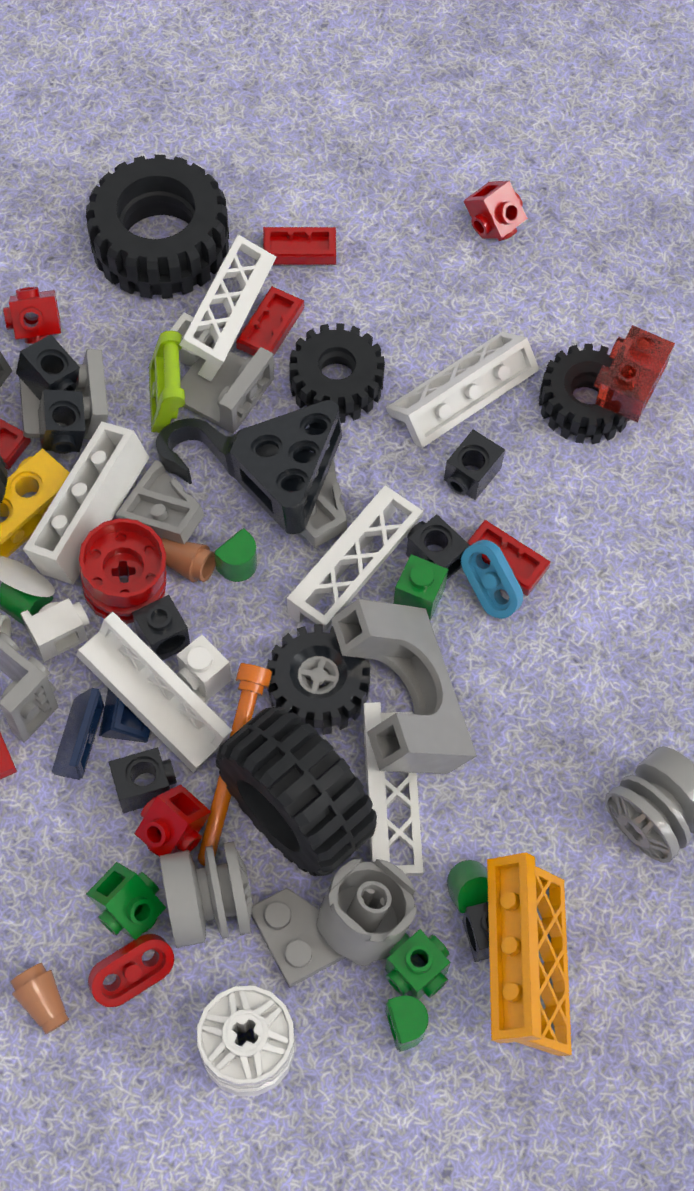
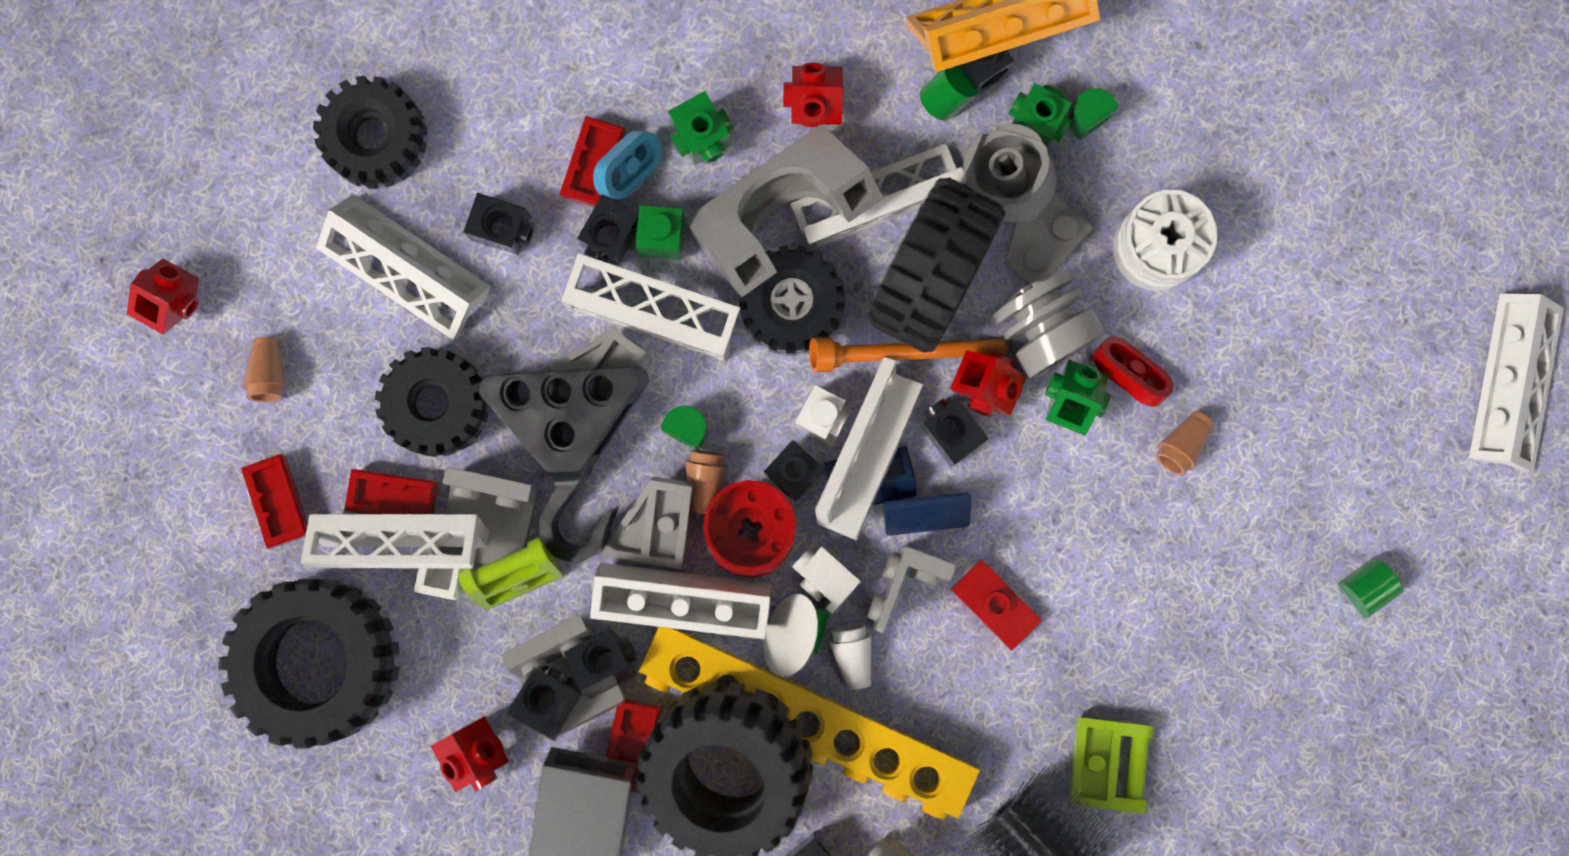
camera: 105 degrees left, 20 degrees up
(409, 266) = (264, 371): none -> nougat cone
(505, 649) = (697, 116): none -> green brick
(506, 761) = (815, 94): none -> red brick
(633, 373) = (346, 80): clear red brick -> none

